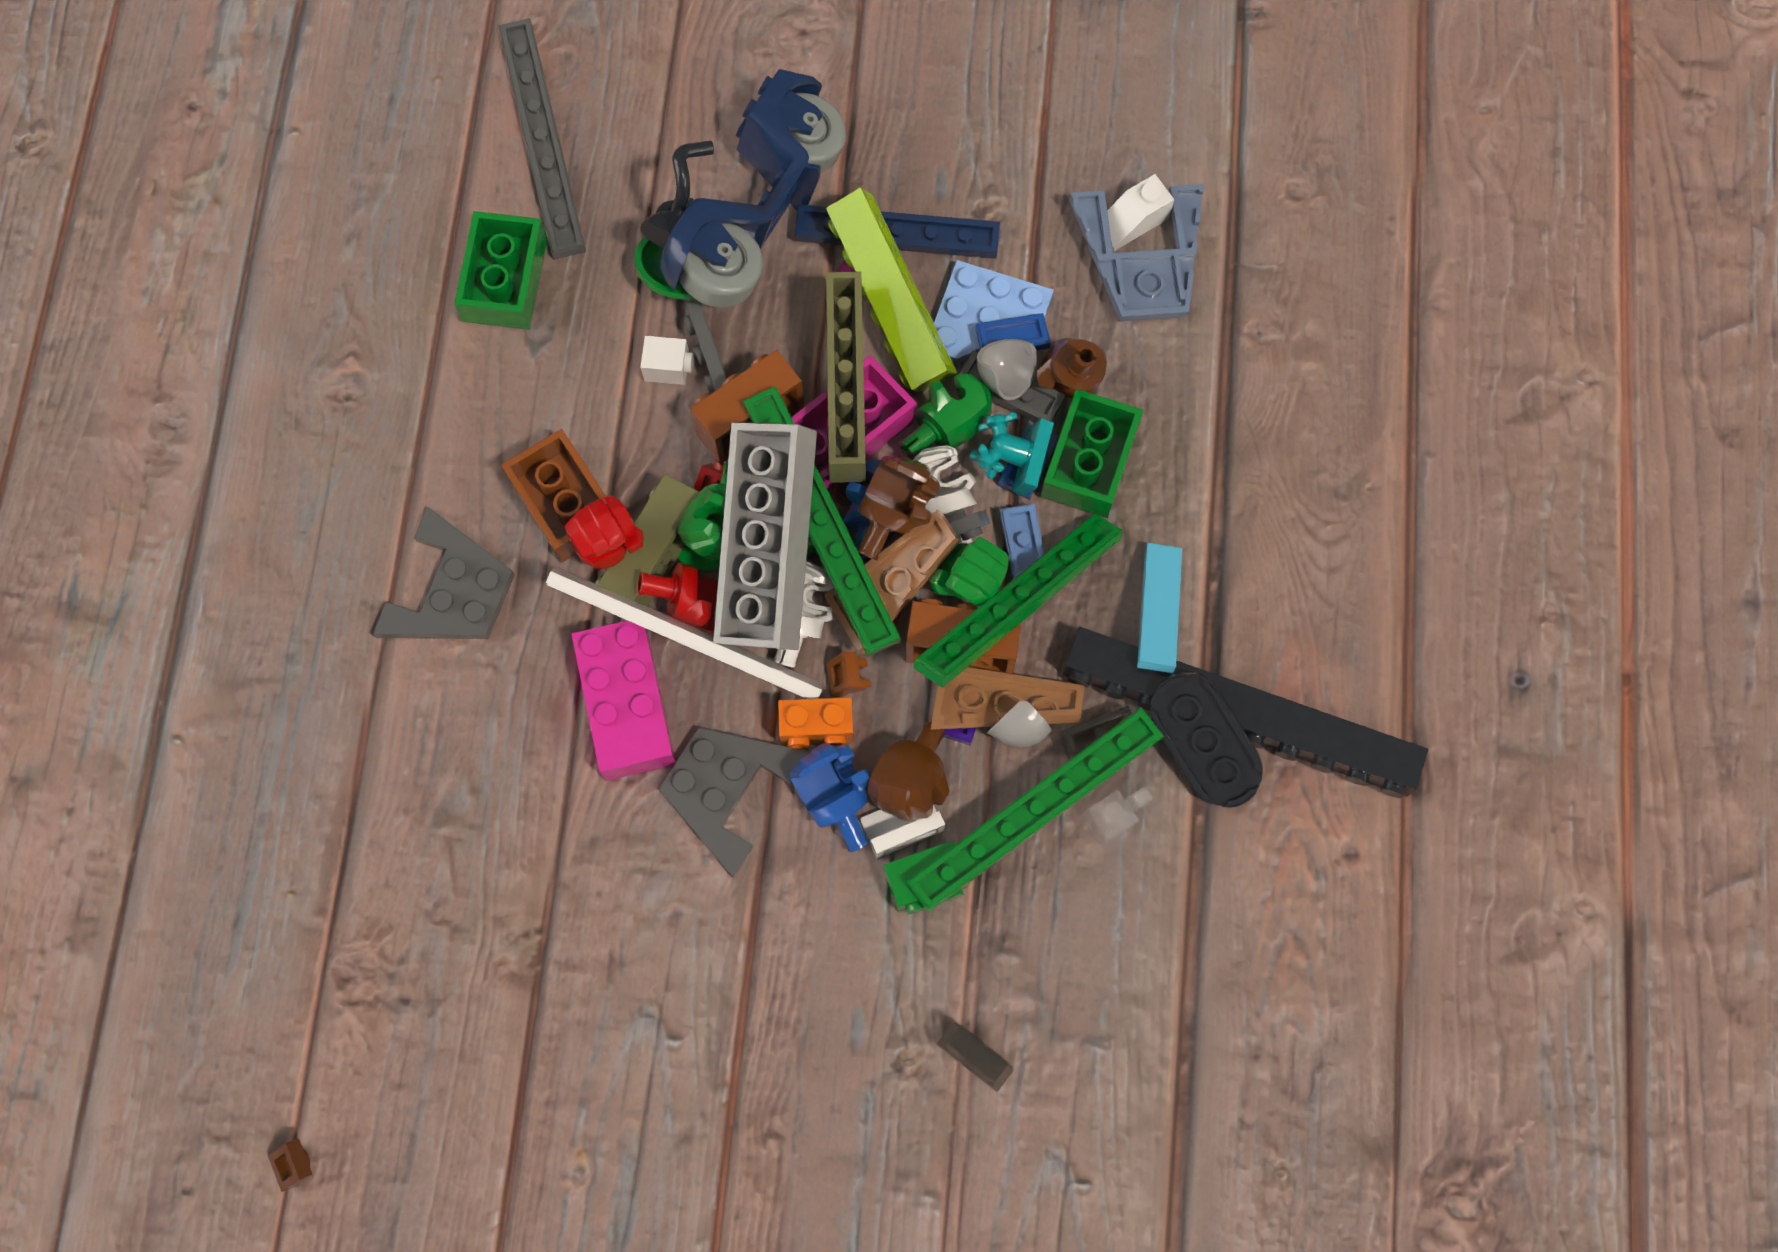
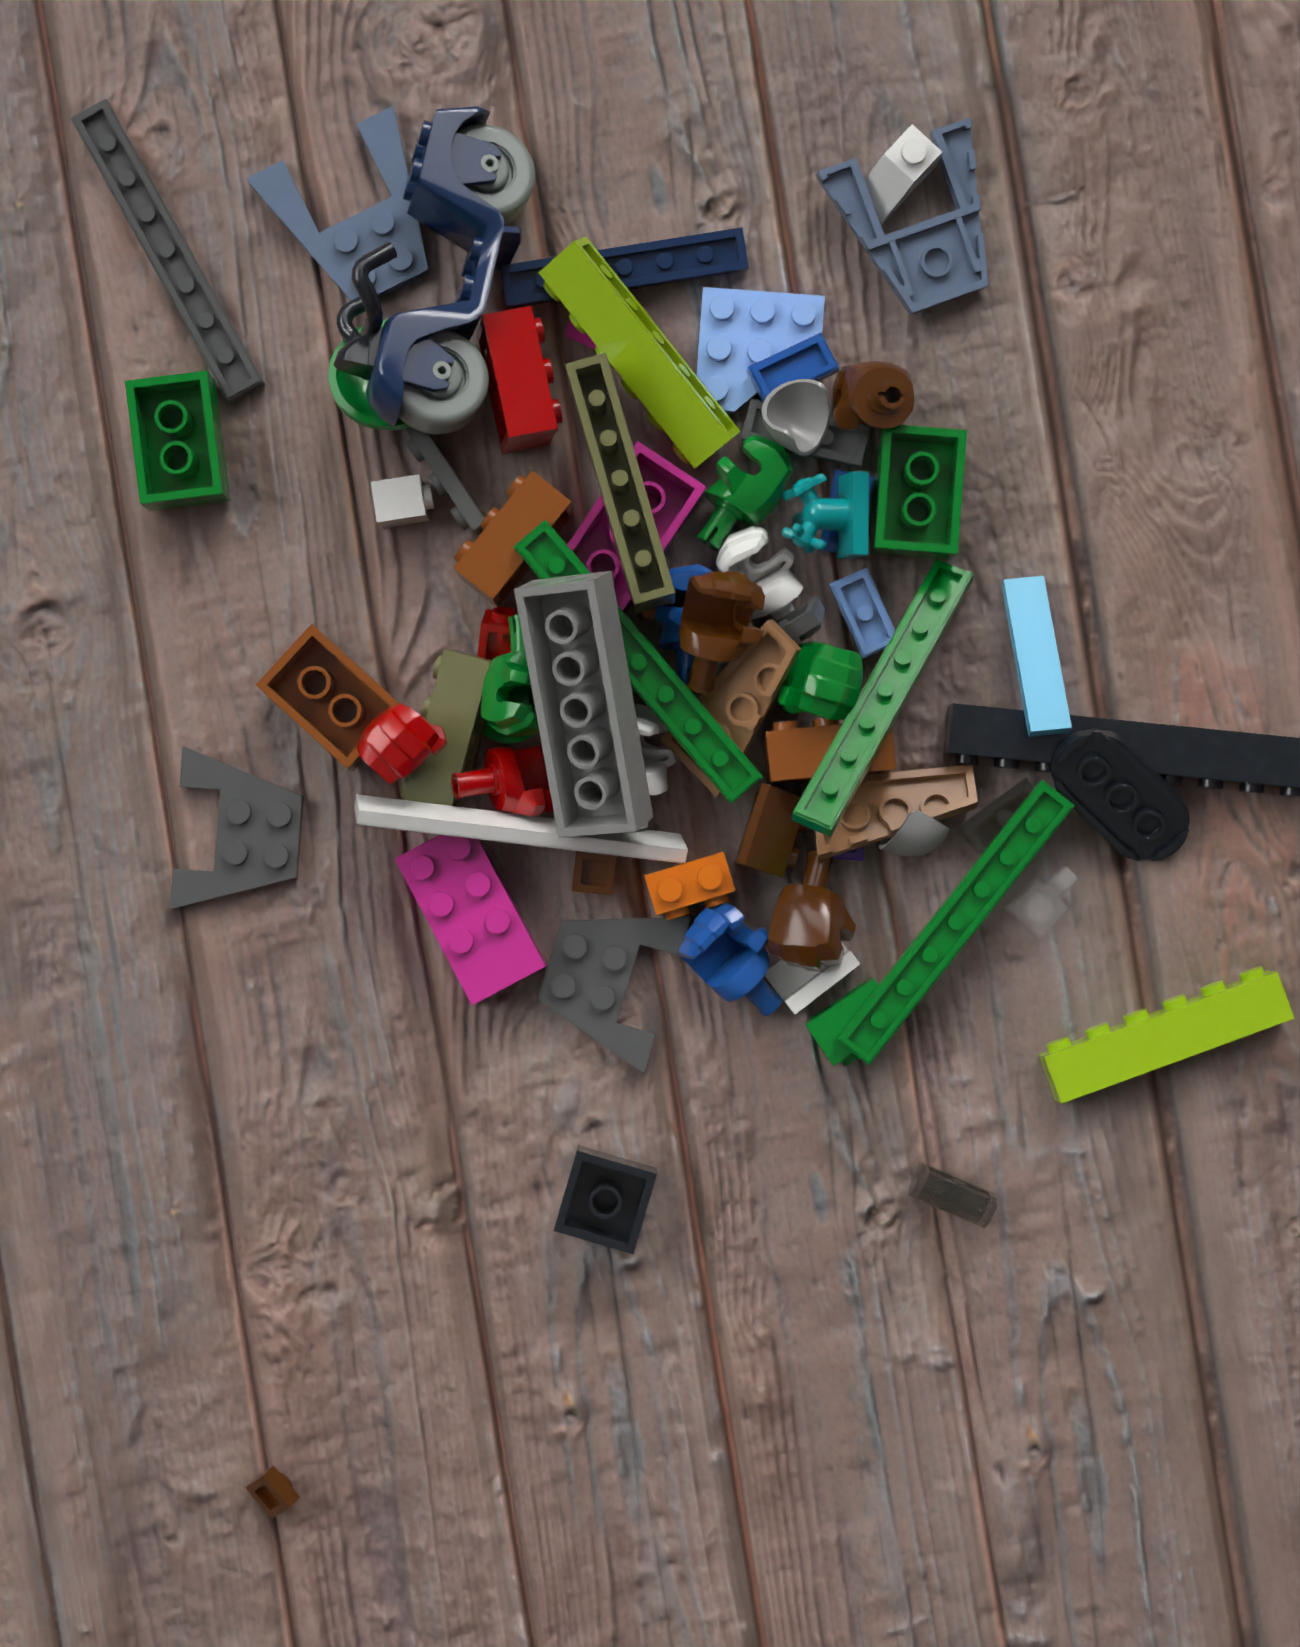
camera: 15 degrees left, 15 degrees up
(666, 973) = (605, 1199): none -> black brick
(711, 176) = (345, 242): none -> sand blue wing
(738, 694) = (594, 873): none -> reddish brown plate
(788, 287) = (518, 379): none -> red brick
(845, 675) = (706, 820): dark orange tile -> none
(896, 695) = (770, 832): none -> reddish brown slope
(1200, 960) = (1166, 1035): none -> lime brick

